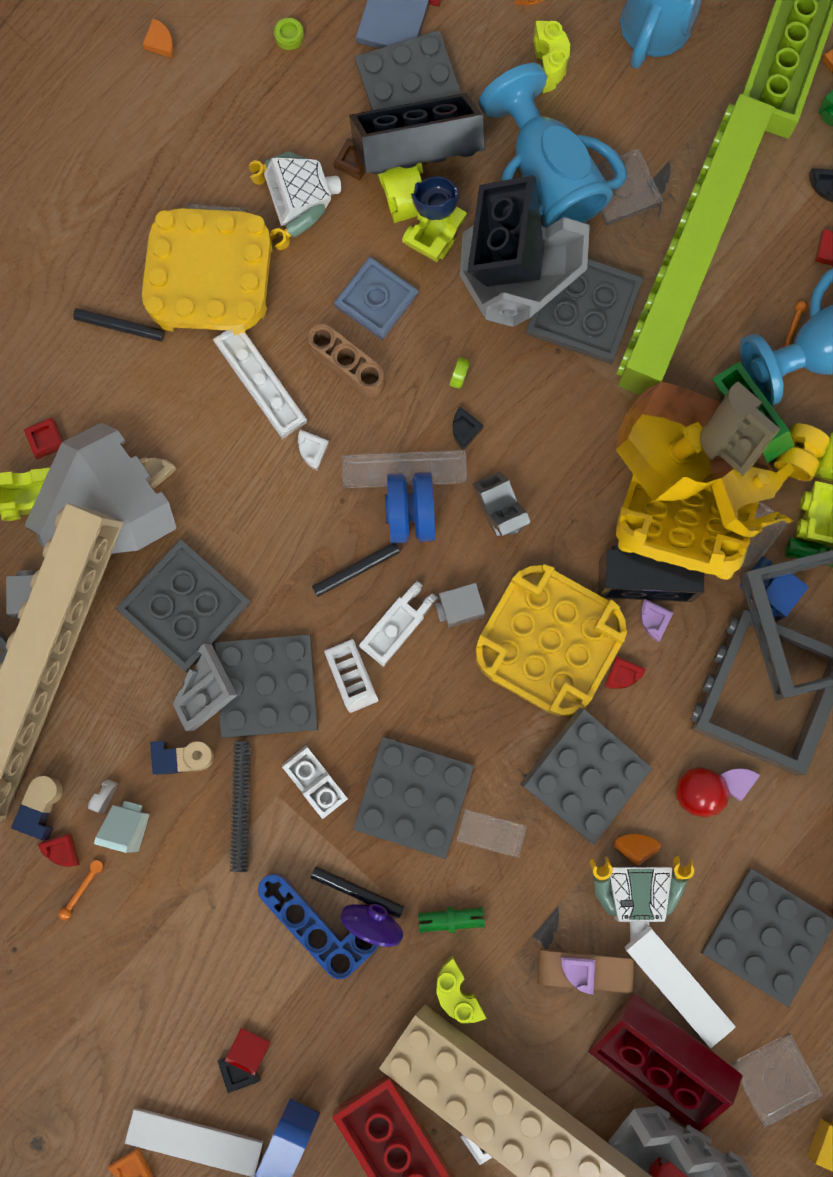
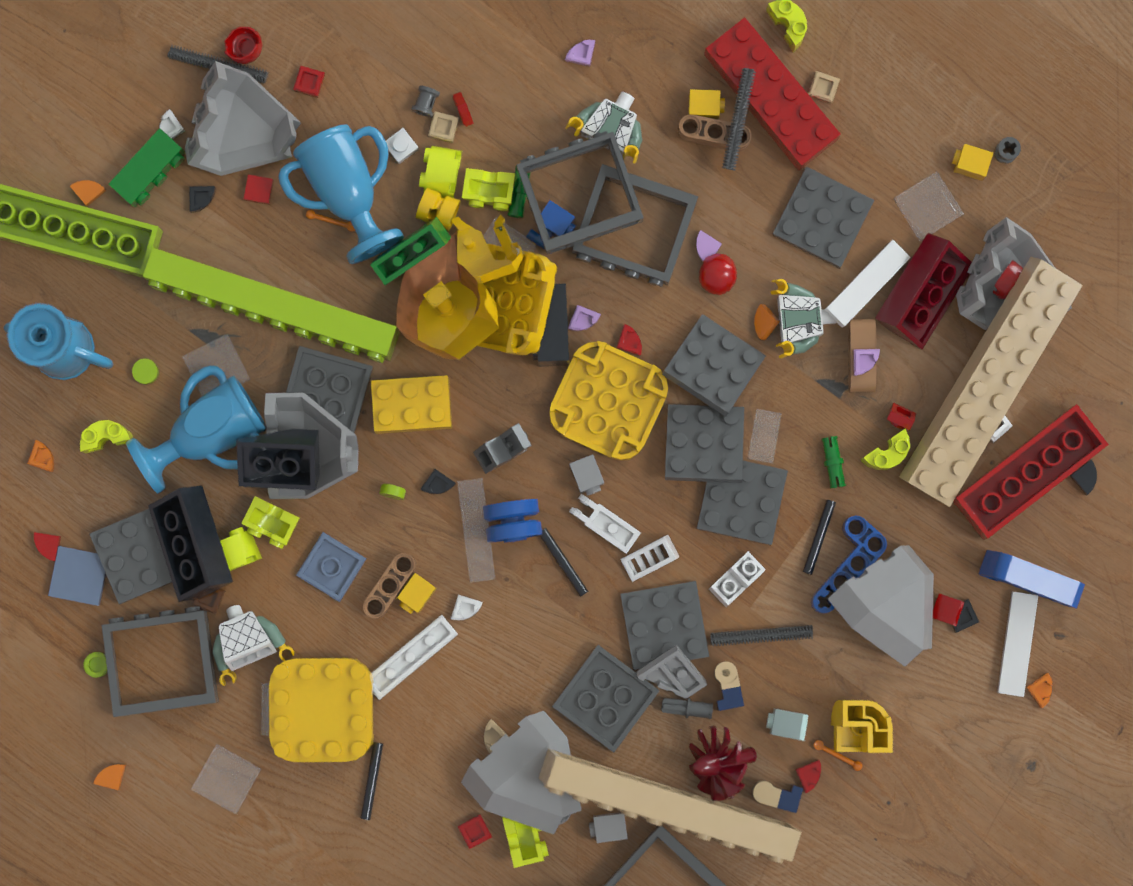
camera: 95 degrees left, 5 degrees up
(81, 736) = (720, 767): none -> dark red piece
(101, 801) = (763, 745): white tile -> none
(106, 923) = (861, 727): none -> yellow brick
(141, 163) = (226, 779): none -> clear tile
(161, 704) = (687, 708): none -> dark grey axle
(258, 977) = (891, 604): none -> light grey panel
(278, 46) = (166, 617): none -> dark grey window
(334, 390) = (416, 594): none -> yellow brick
(372, 924) = (843, 522): dark purple dish -> none
(435, 198) = (249, 522): dark blue hair -> none
(486, 755) = (704, 444): none -> dark grey plate
(502, 1015) = (901, 417): none -> red plate
(563, 402) = (411, 404): none -> yellow brick
(623, 108) = (145, 371): none -> lime tile
(738, 430) = (433, 264): dark tan brick -> none

